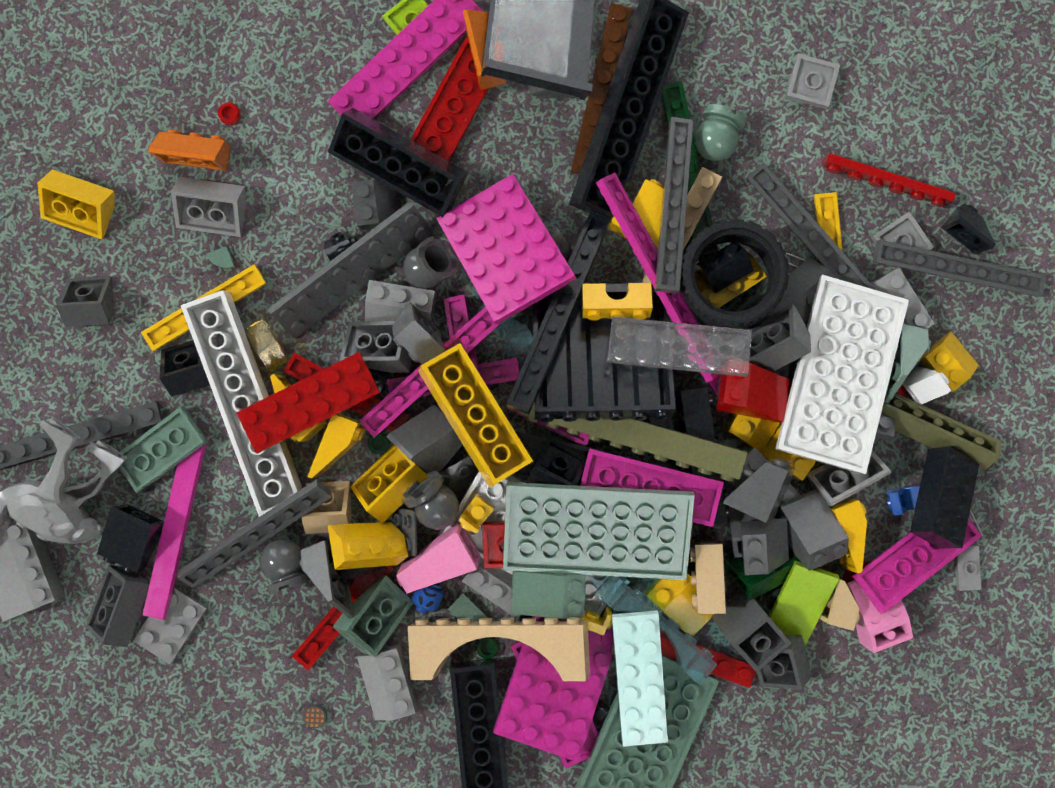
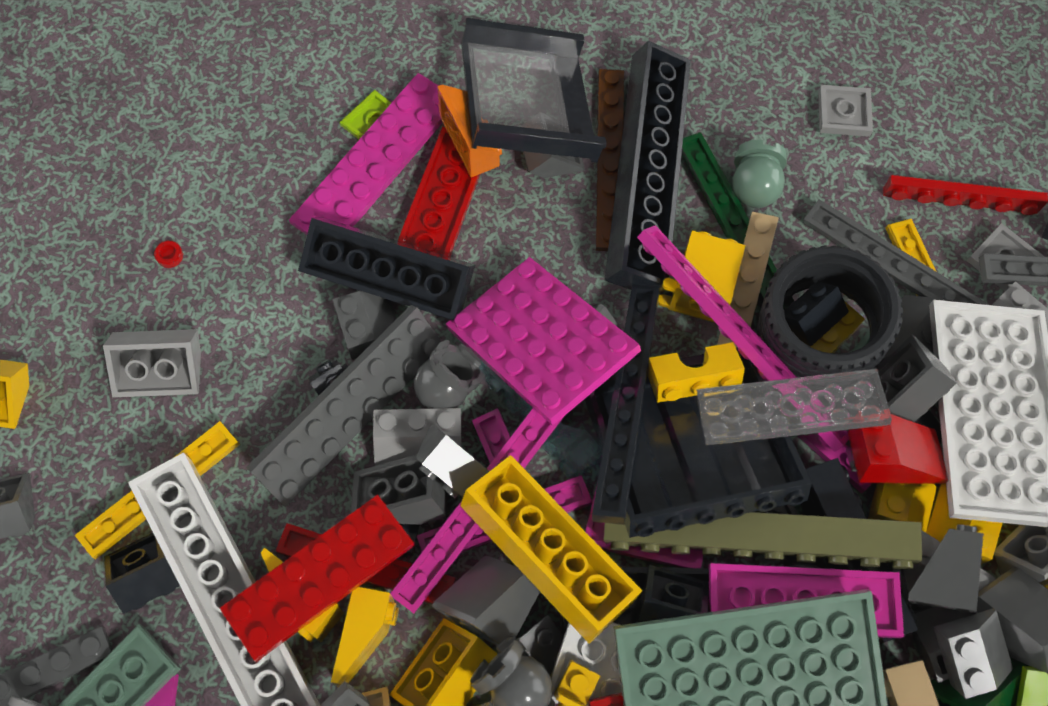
camera: 15 degrees left, 20 degrees down
(191, 150) = (124, 300): orange slope -> none
(221, 258) = (176, 423): sand green tile -> none
(265, 345) = (248, 521): clear yellow slope -> none
(379, 443) = (419, 625): dark green tile -> none
(674, 205) = (736, 254): dark grey plate -> none

